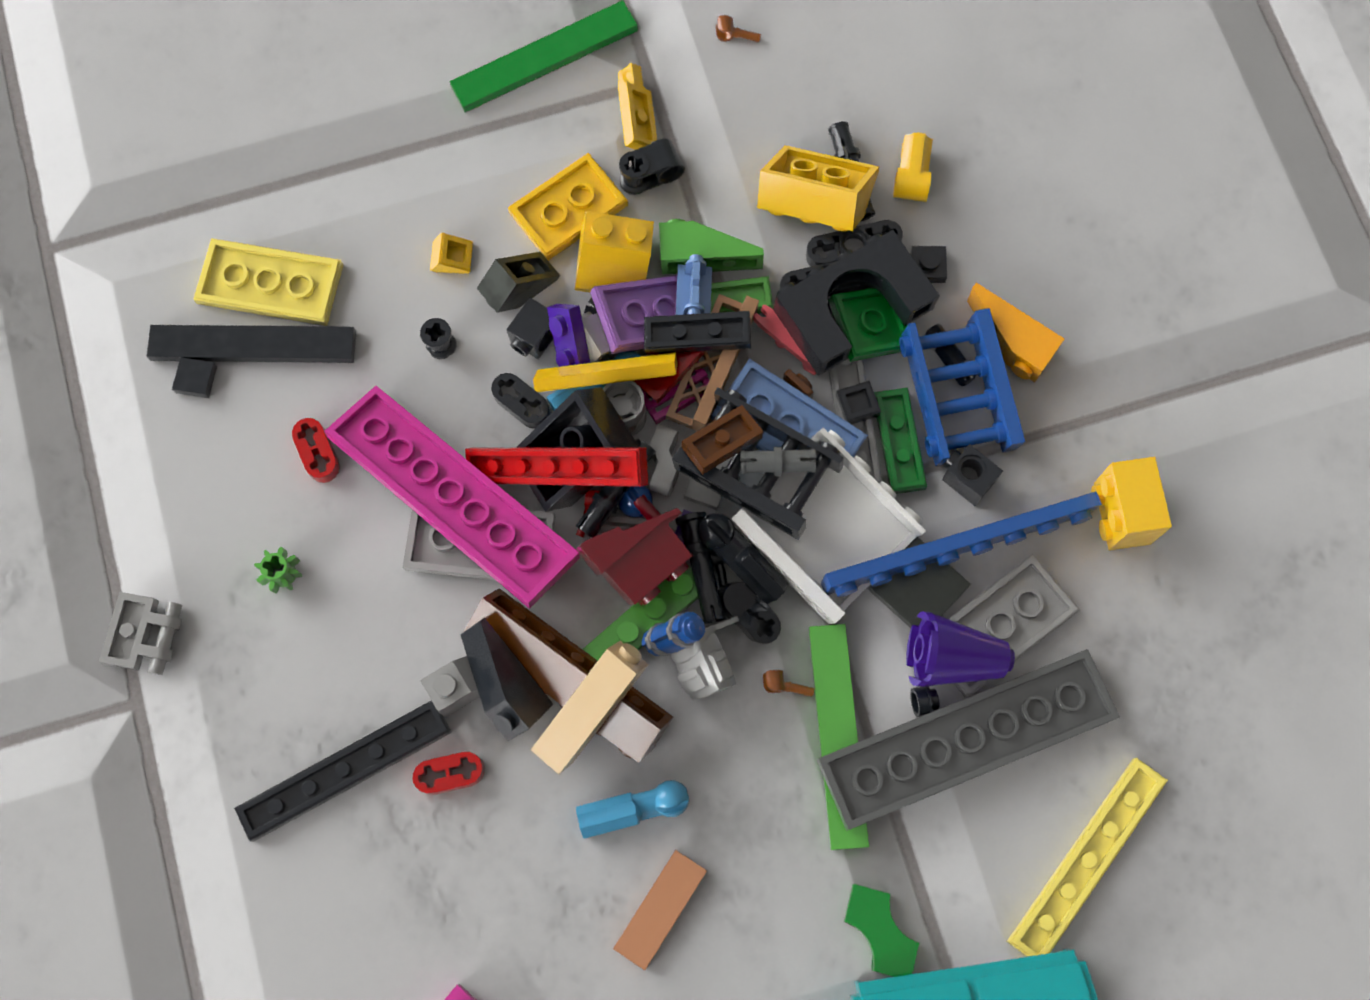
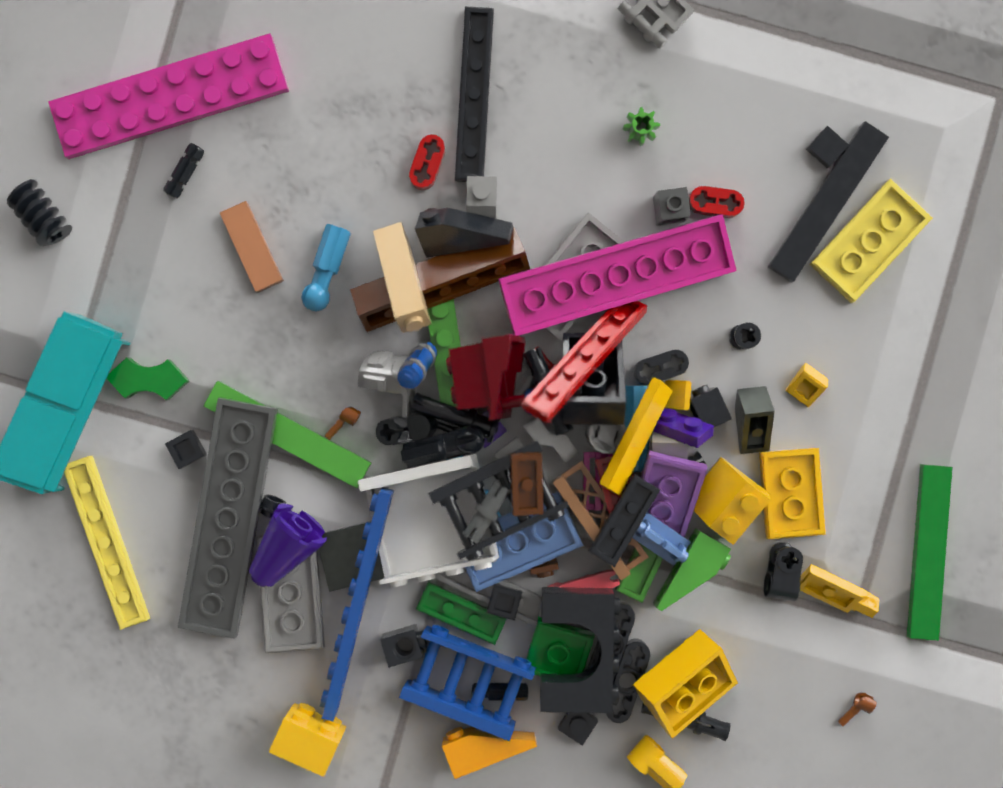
camera: 120 degrees right, 15 degrees up
(345, 487) = (671, 206): none -> dark grey brick
(535, 359) = (680, 396): none -> yellow slope
(928, 835) = (186, 449): none -> black plate

